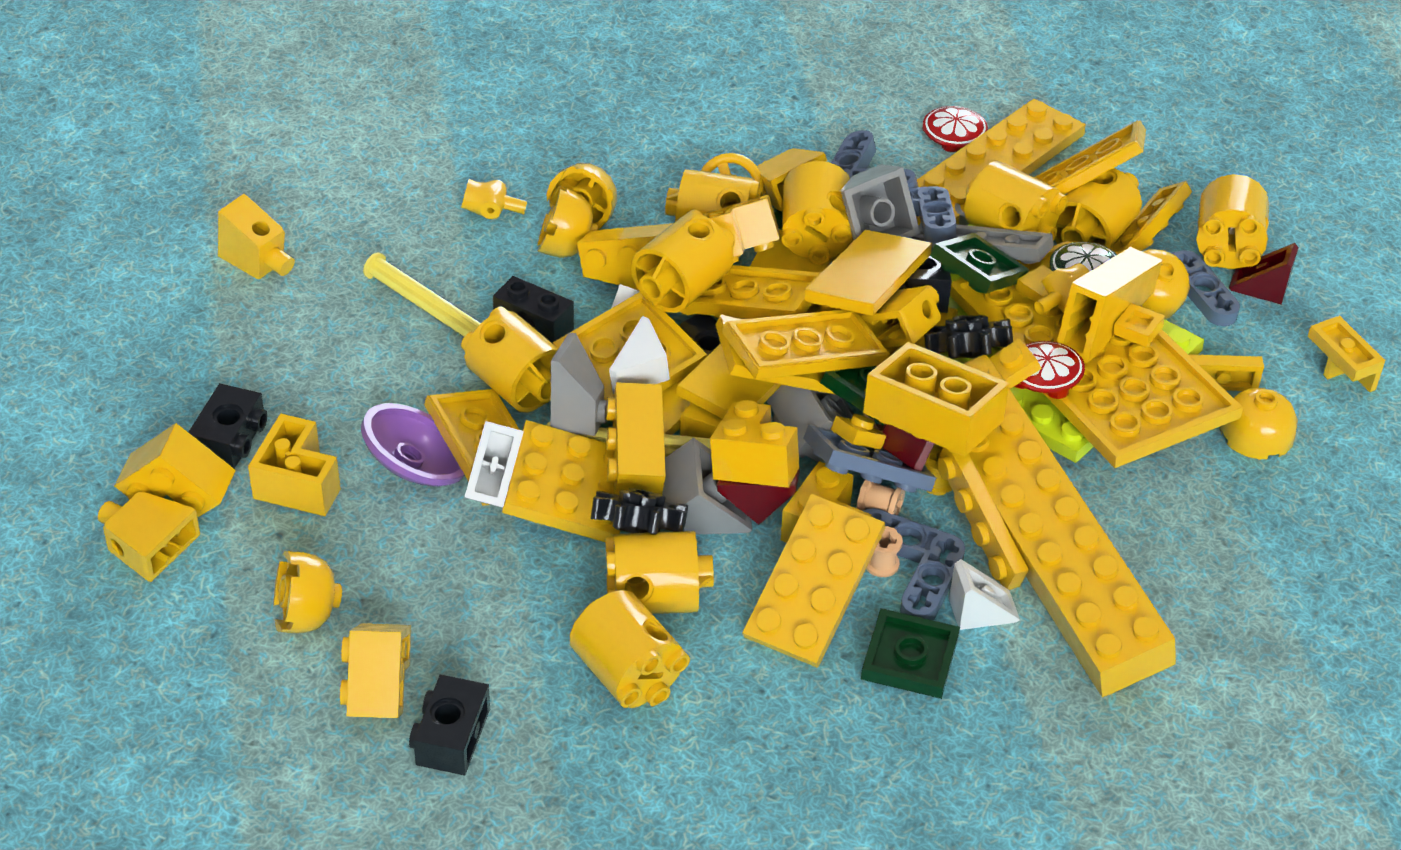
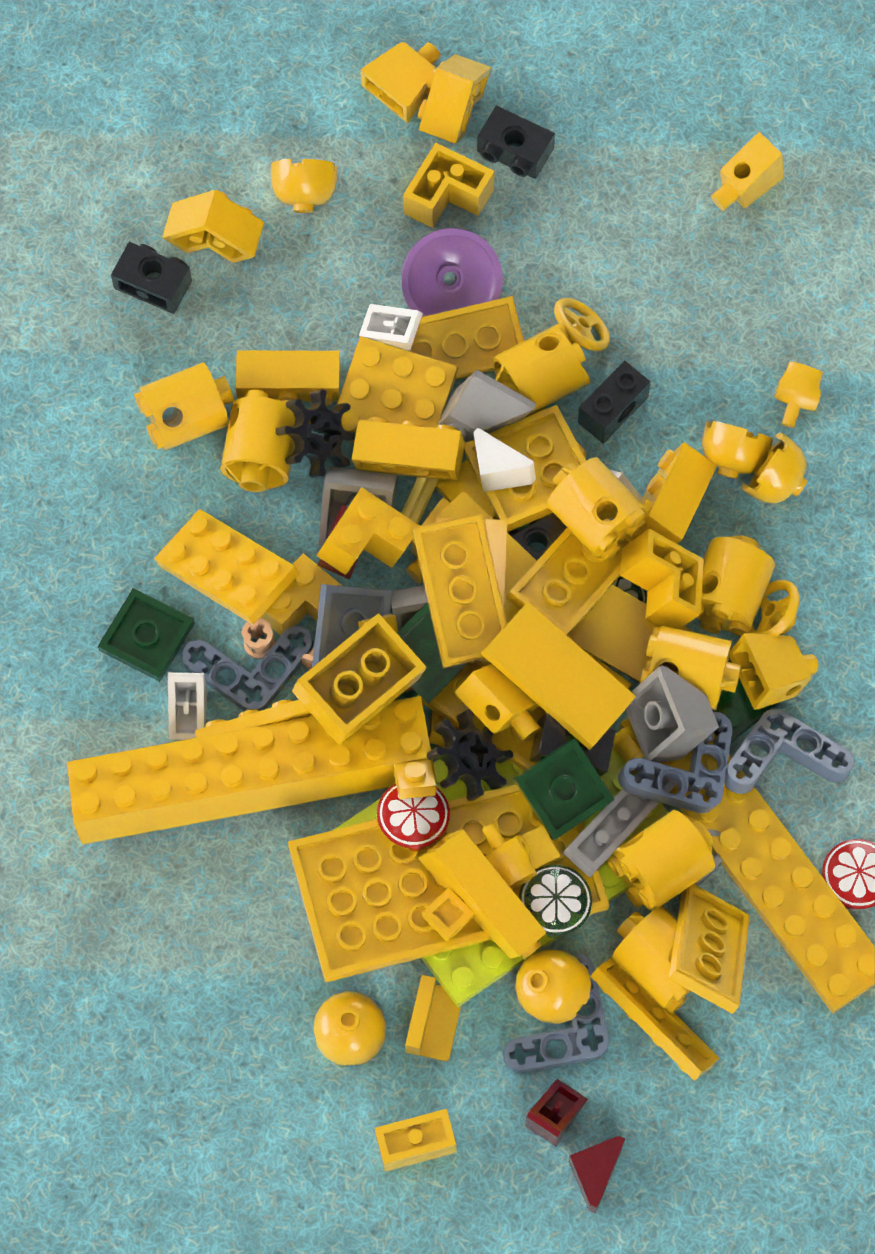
camera: 105 degrees right, 25 degrees up
(418, 294) = (653, 323): light yellow axle -> none
(448, 348) = (578, 327): none -> yellow piece
(558, 572) = (288, 373): none -> yellow brick
(1233, 222) = (623, 1094): yellow cylinder -> none
(1314, 241) = (594, 1169): none -> dark red slope

